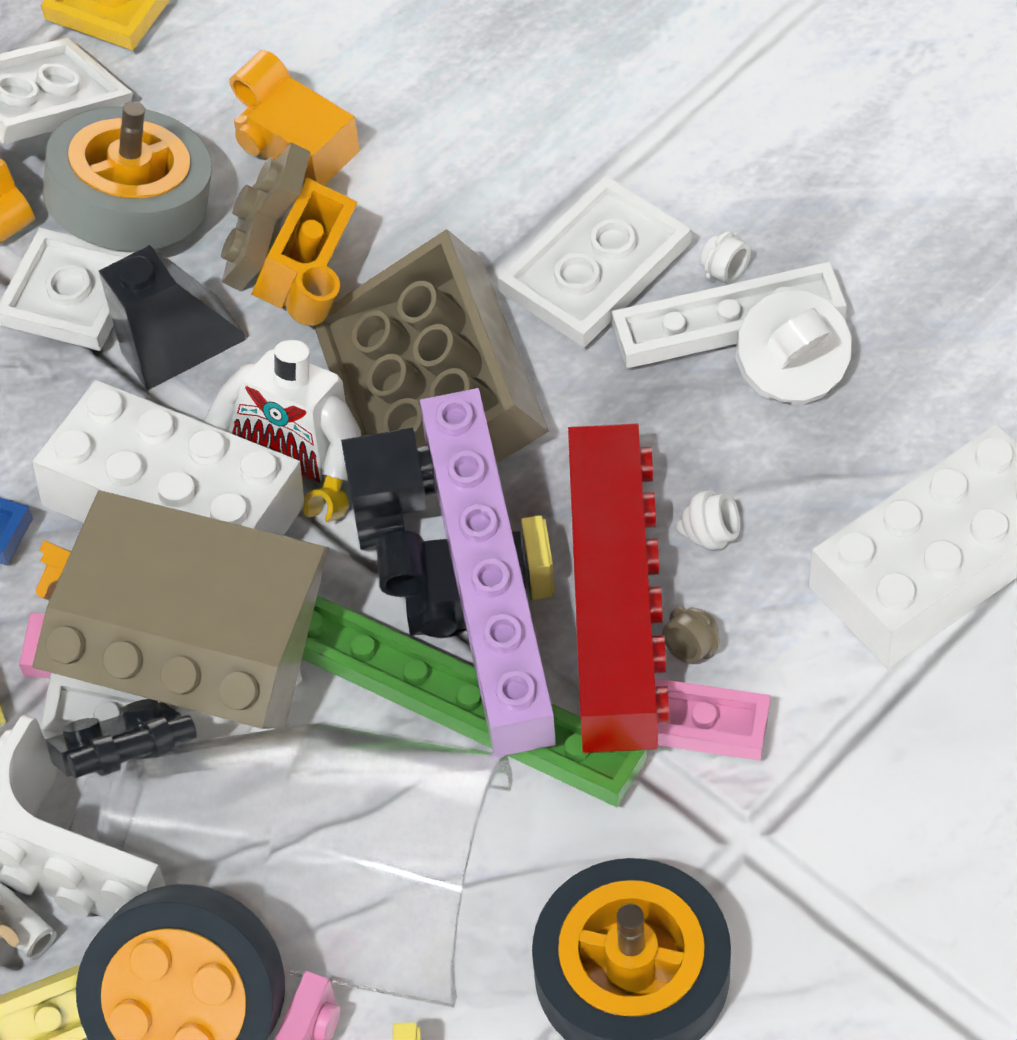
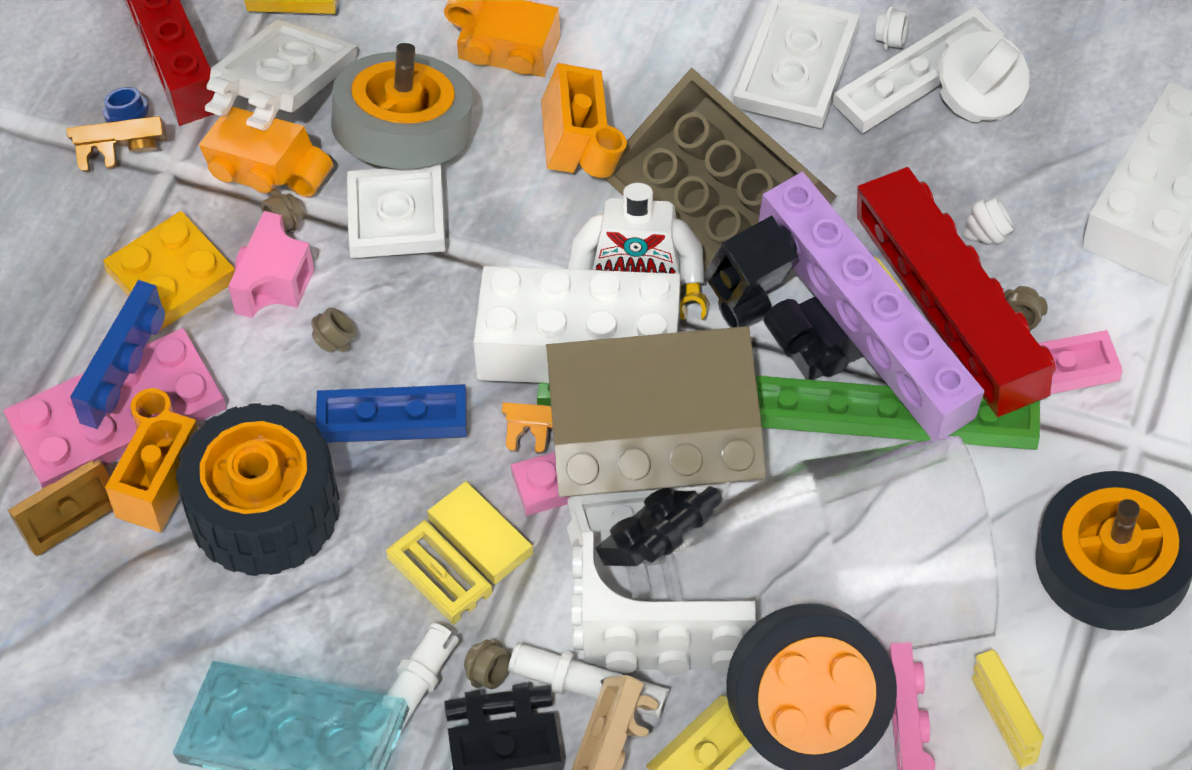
camera: 25 degrees left, 0 degrees up
(164, 316) = (495, 207): black slope -> none
(257, 213) = (519, 103): dark tan plate -> none

